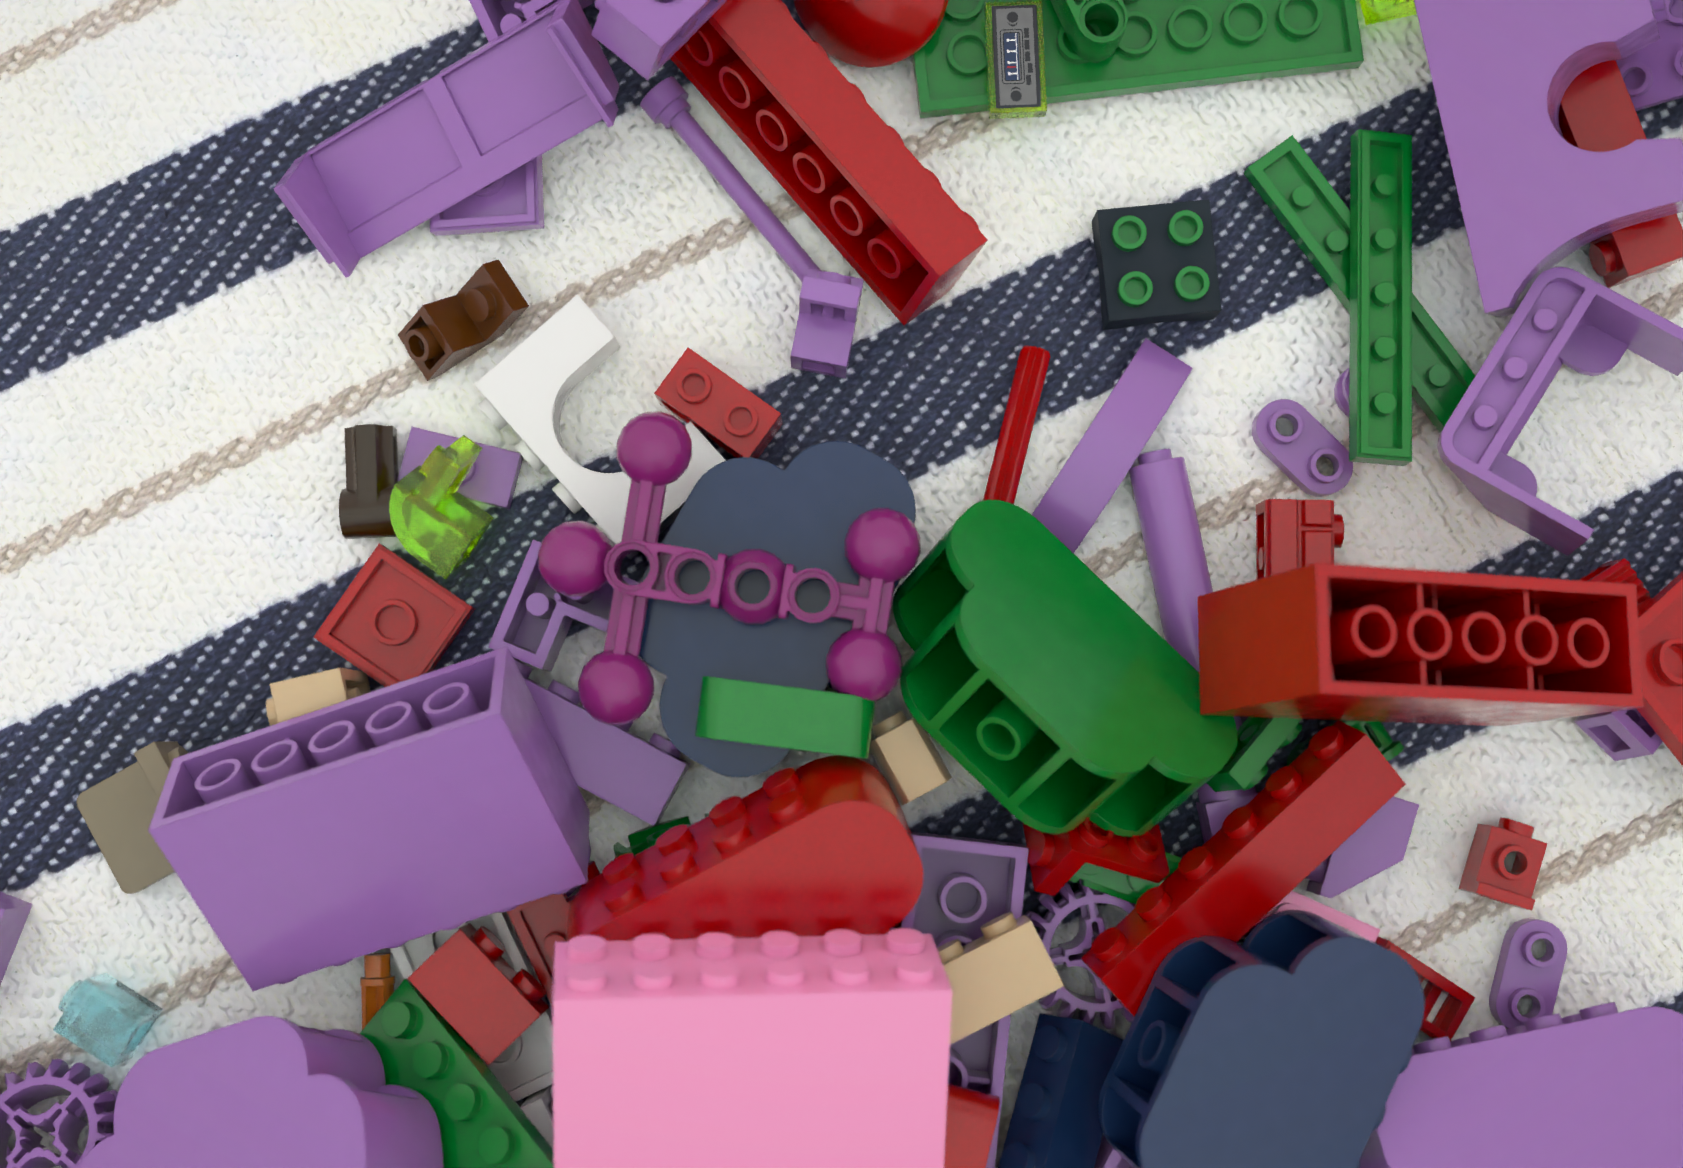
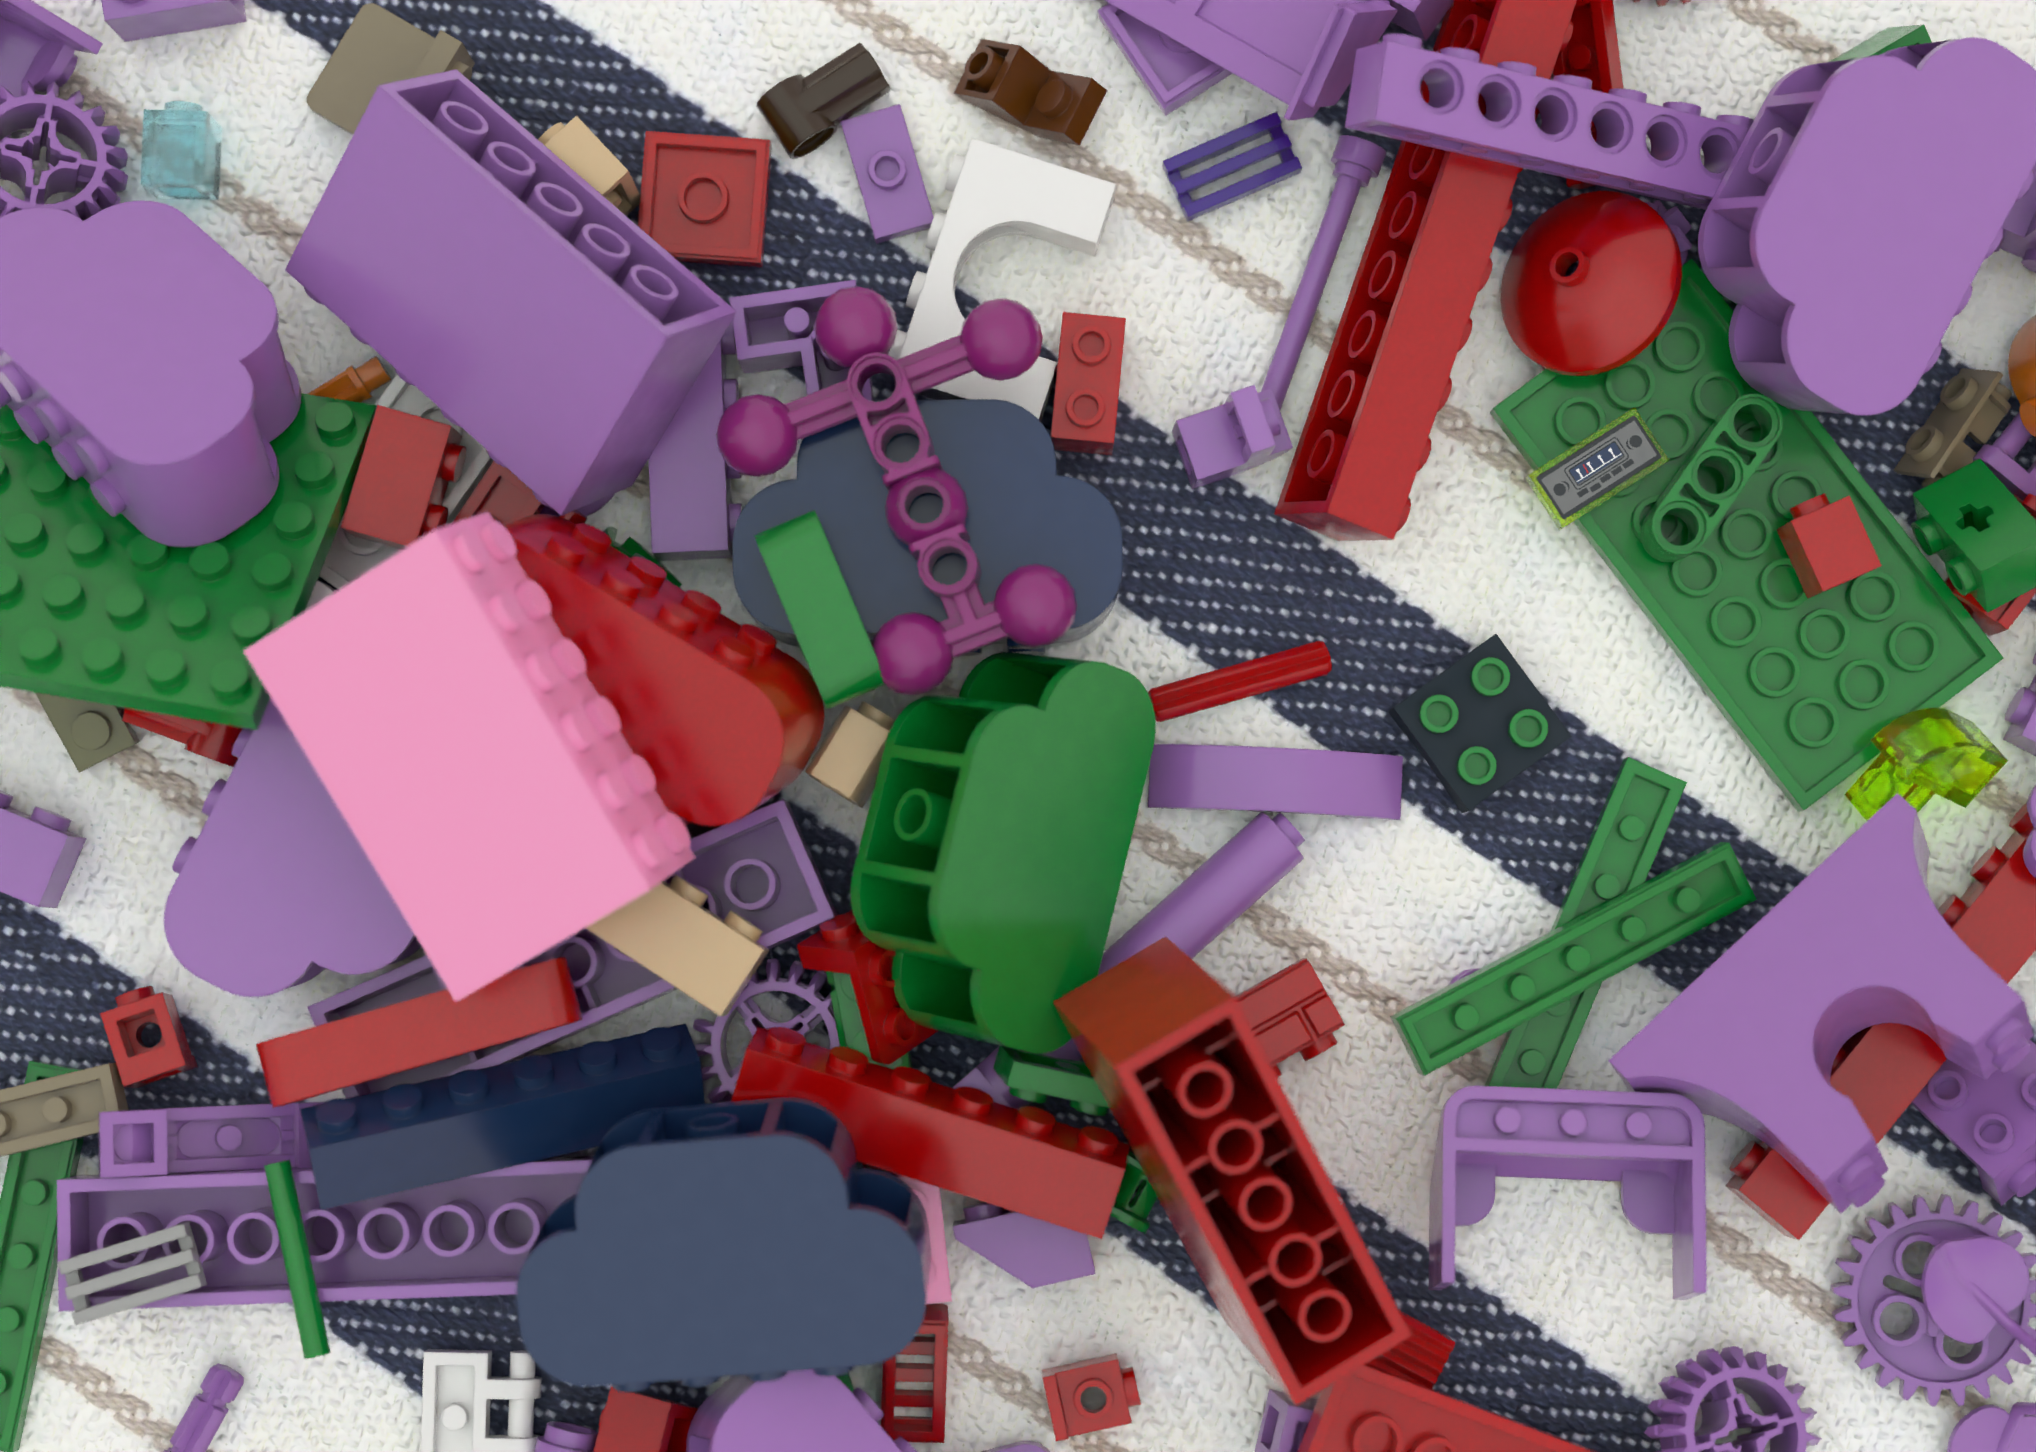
camera: 65 degrees right, 0 degrees up
(430, 514) = (824, 174): clear neon green brick -> none
(618, 155) = (1279, 145): none -> dark purple tile
(1299, 453) = (1383, 970): medium lavender plate -> none

